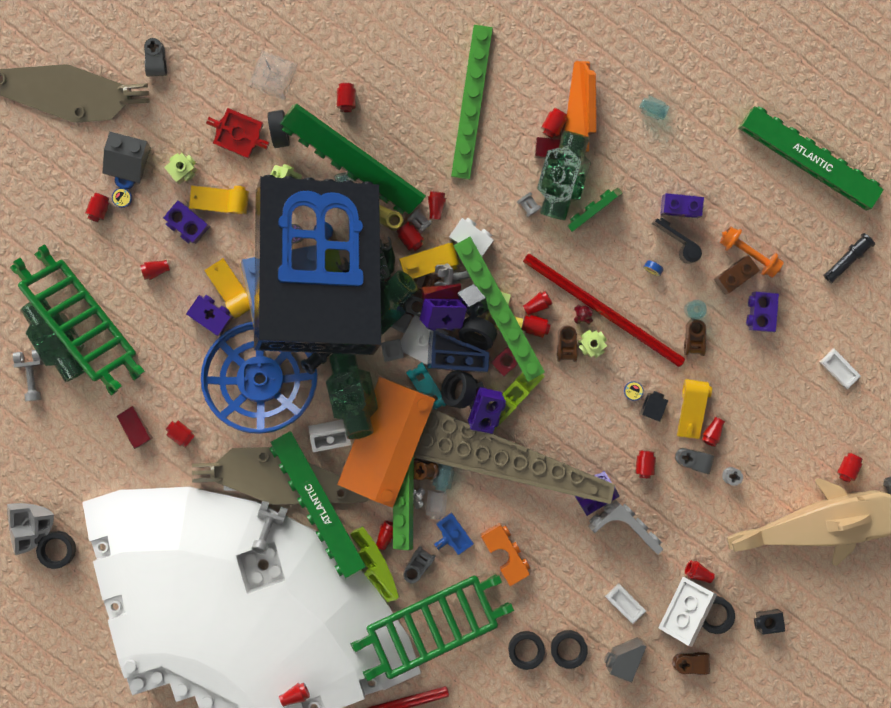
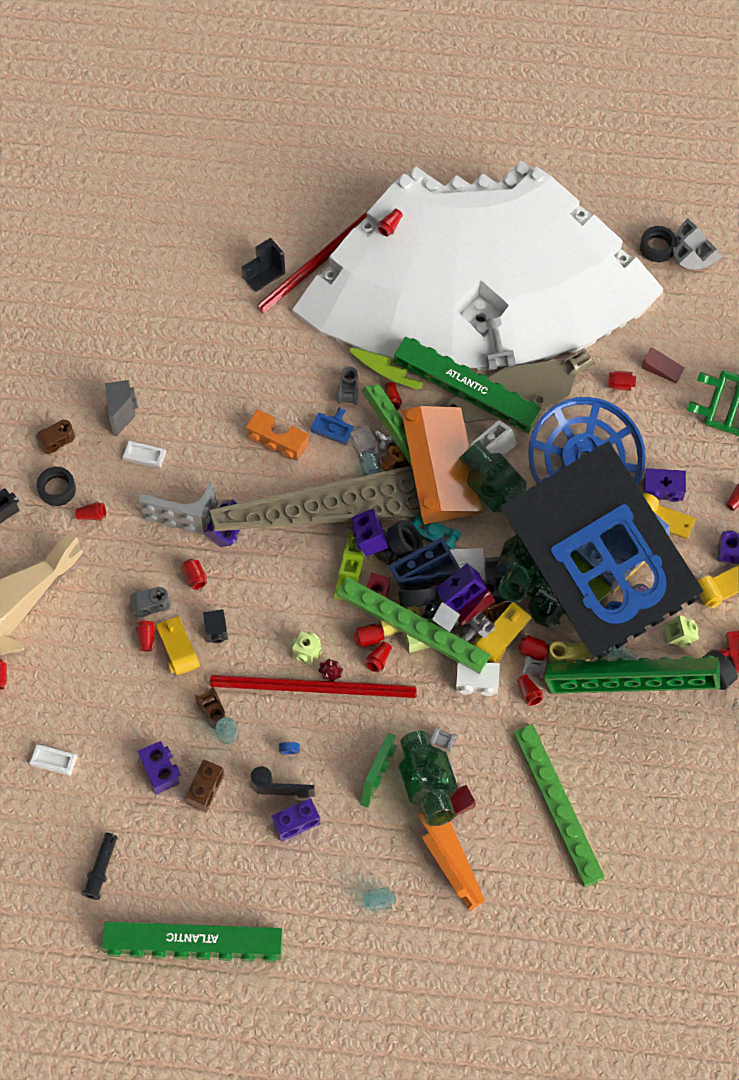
camera: 145 degrees right, 25 degrees down
(346, 97) = (677, 737): red brick -> none
(372, 637) = (328, 287): green bar -> none
(392, 350) = (485, 540): dark grey panel -> none
(528, 664) = (211, 385): black tyre -> none
(554, 123) = (467, 827): red brick -> none
(567, 346) = (329, 633): reddish brown piece -> none
(570, 664) = (171, 379): black tyre -> none
(633, 390) = (242, 631): tile -> none
(687, 611) = (84, 472): white plate -> none
(734, 481) = (106, 613): light grey bush -> none
(771, 266) = (174, 814): orange piece -> none

